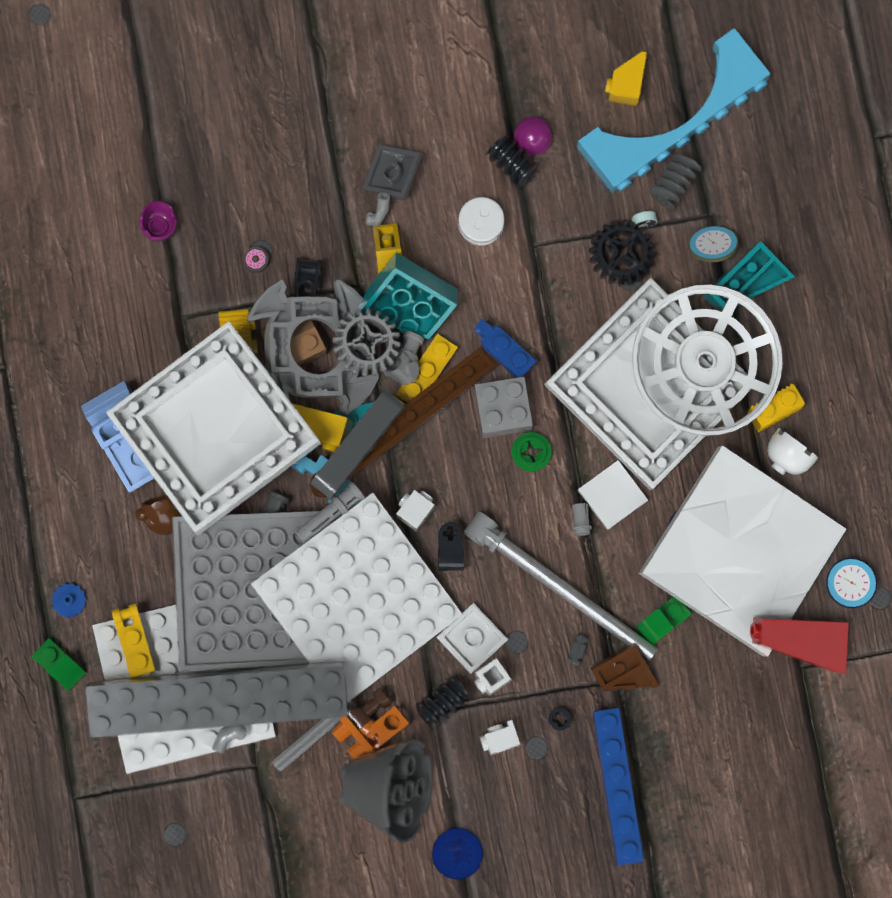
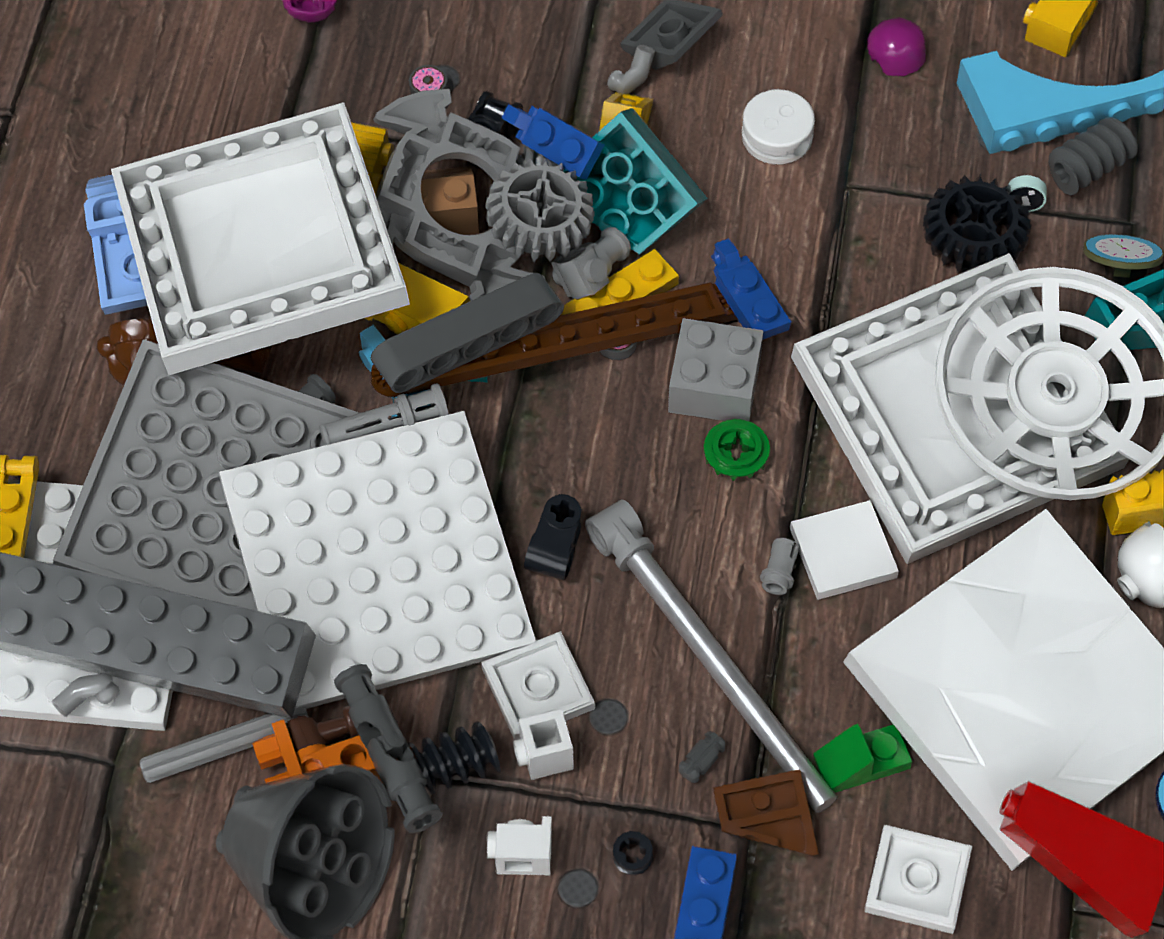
camera: 25 degrees right, 20 degrees down
(357, 291) = (555, 139): none -> blue hinge
(404, 708) = (386, 743): none -> dark grey piece
(415, 509) = (523, 470): white brick -> none
(512, 162) = (854, 65): black piece -> none
(715, 679) = (918, 879): none -> white tile

